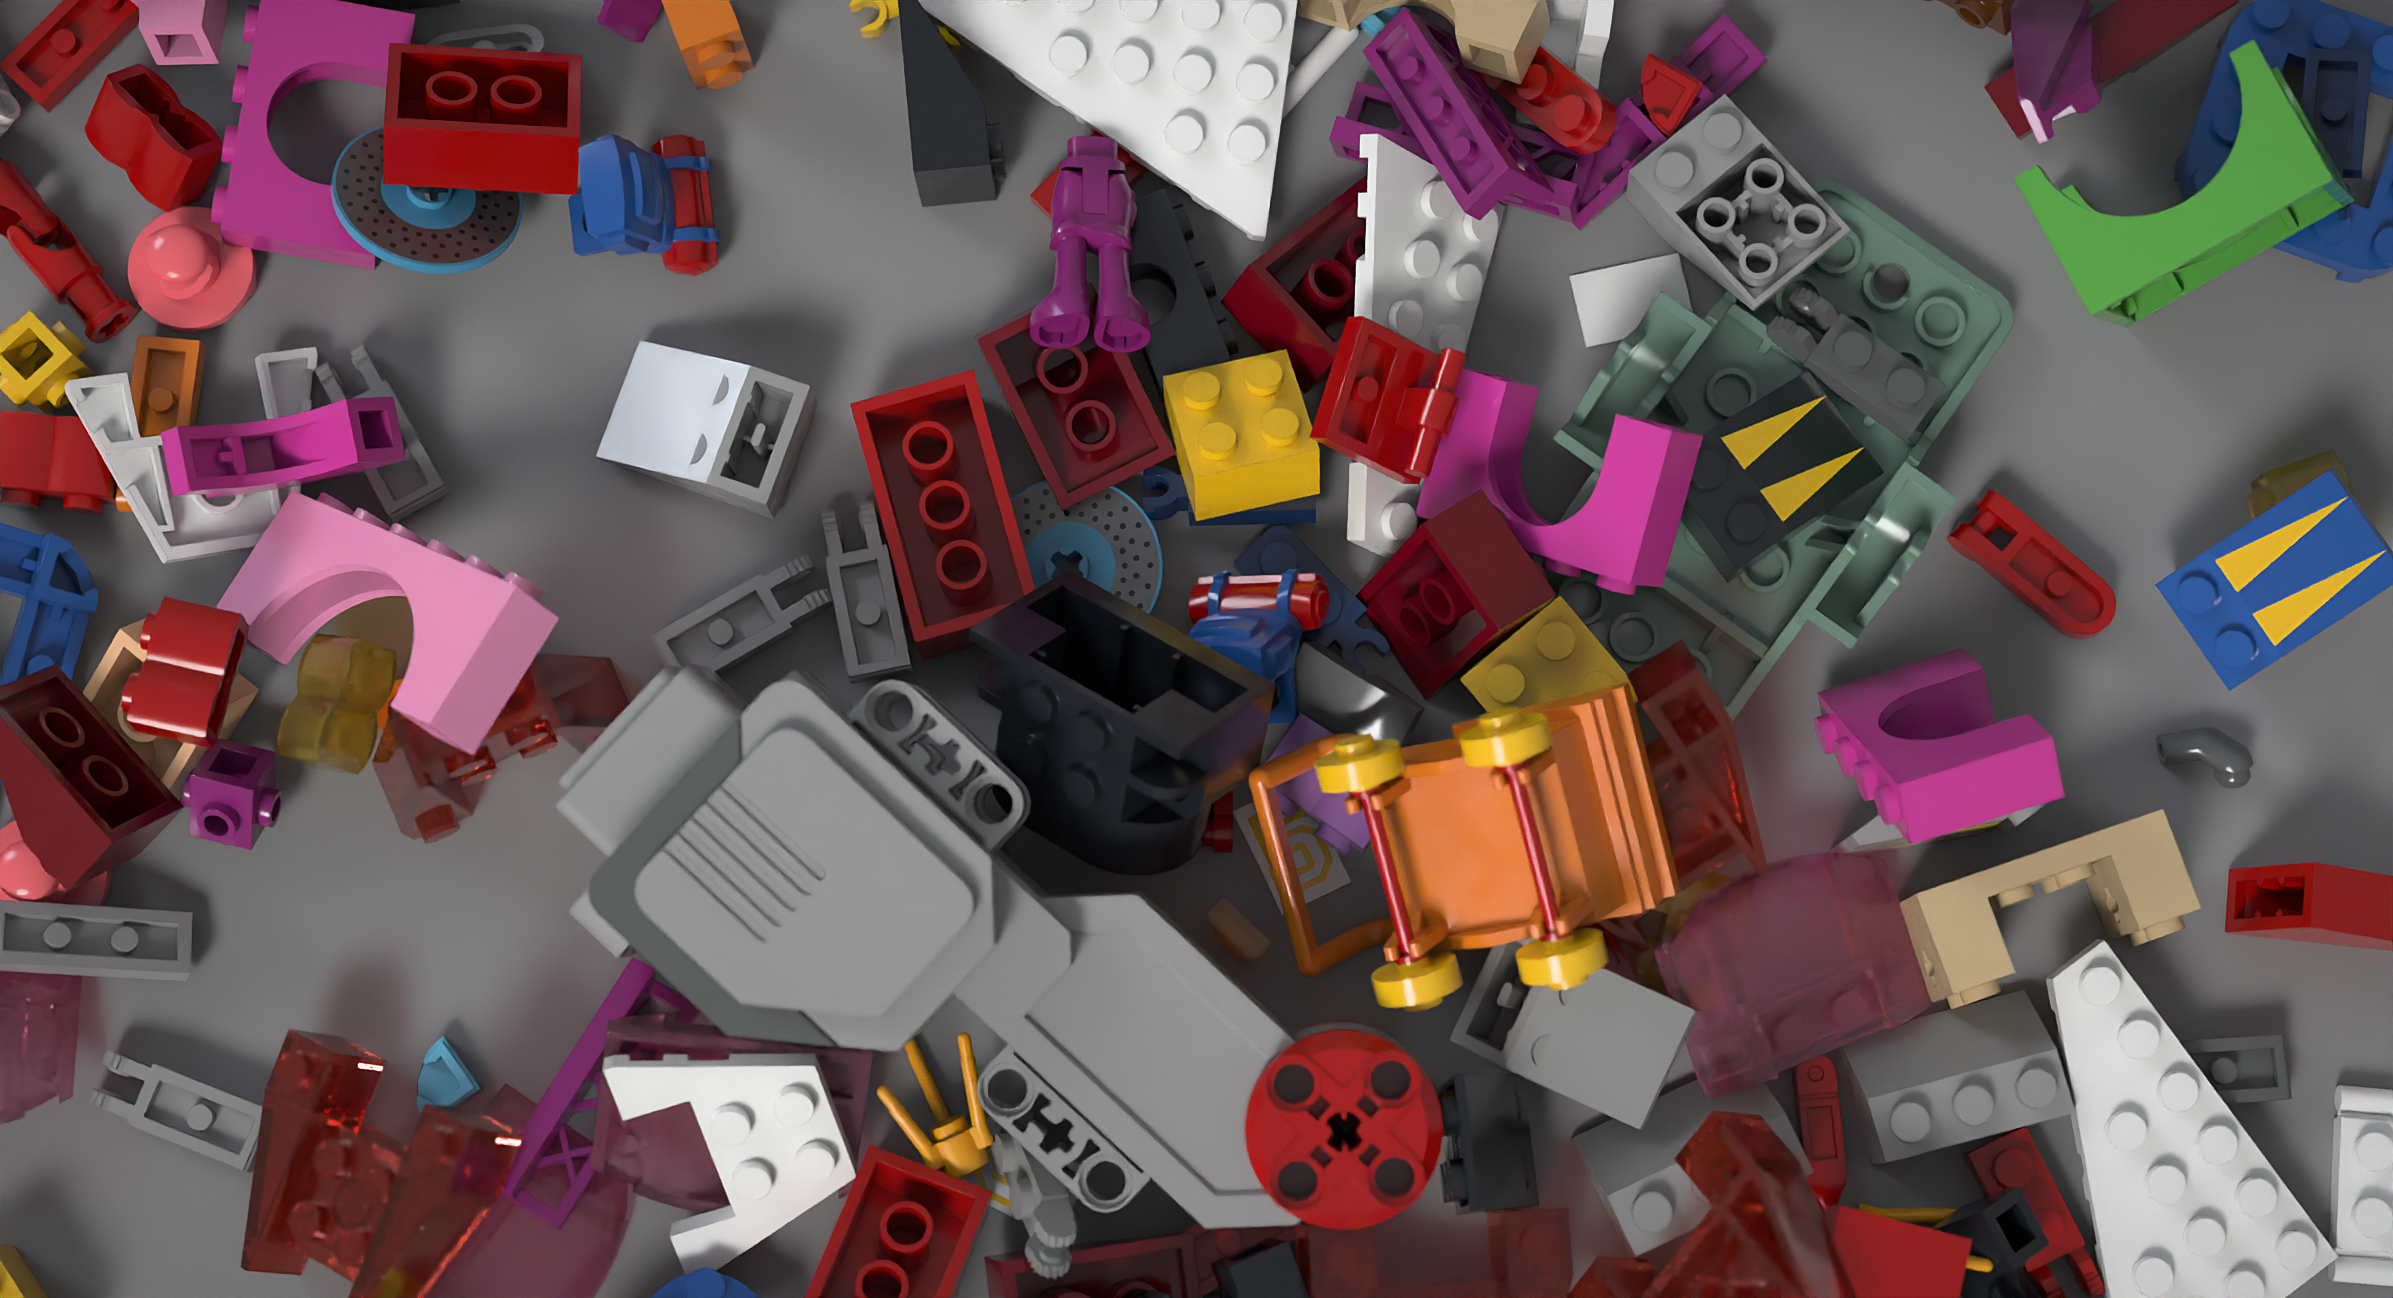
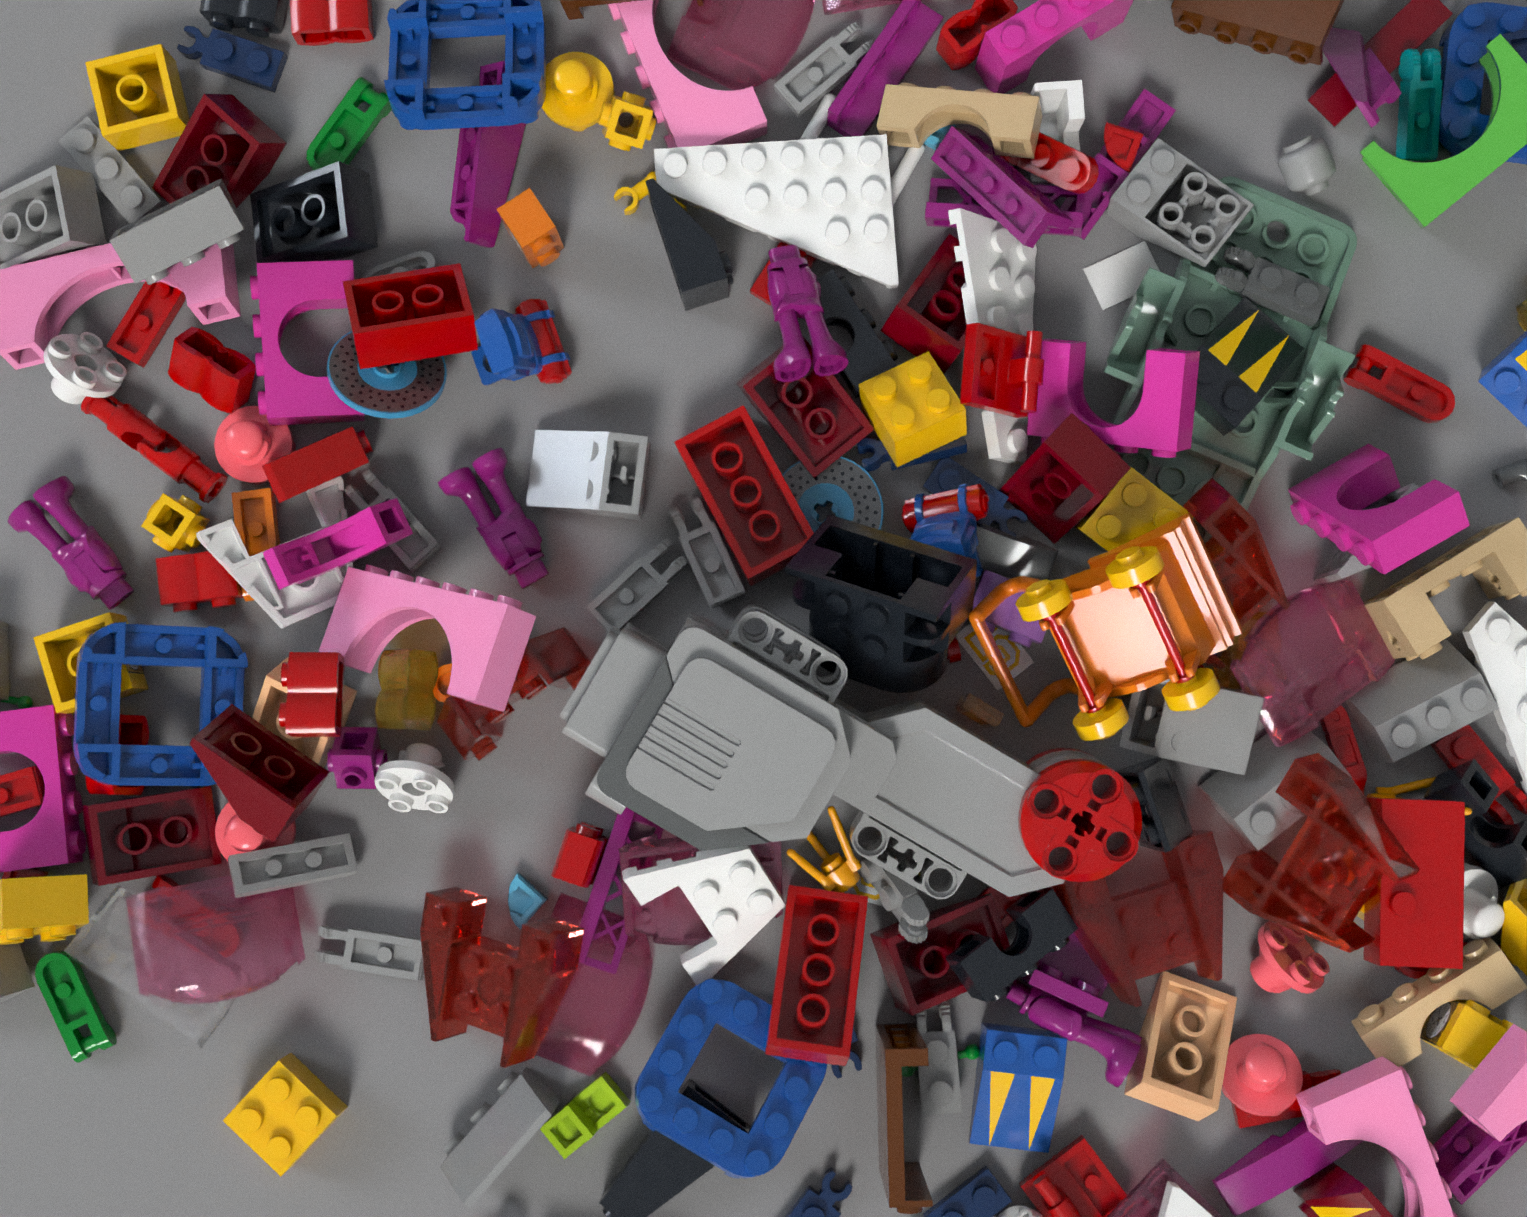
camera: 10 degrees left, 5 degrees up
(282, 316) = (317, 463): none -> red slope
(316, 851) = (416, 780): none -> white plate
(547, 1021) = (580, 854): none -> red brick
(560, 500) = (510, 537): none -> magenta piece
(1958, 188) = (1307, 165): none -> light grey head
(2155, 132) = (1419, 105): none -> teal hinge

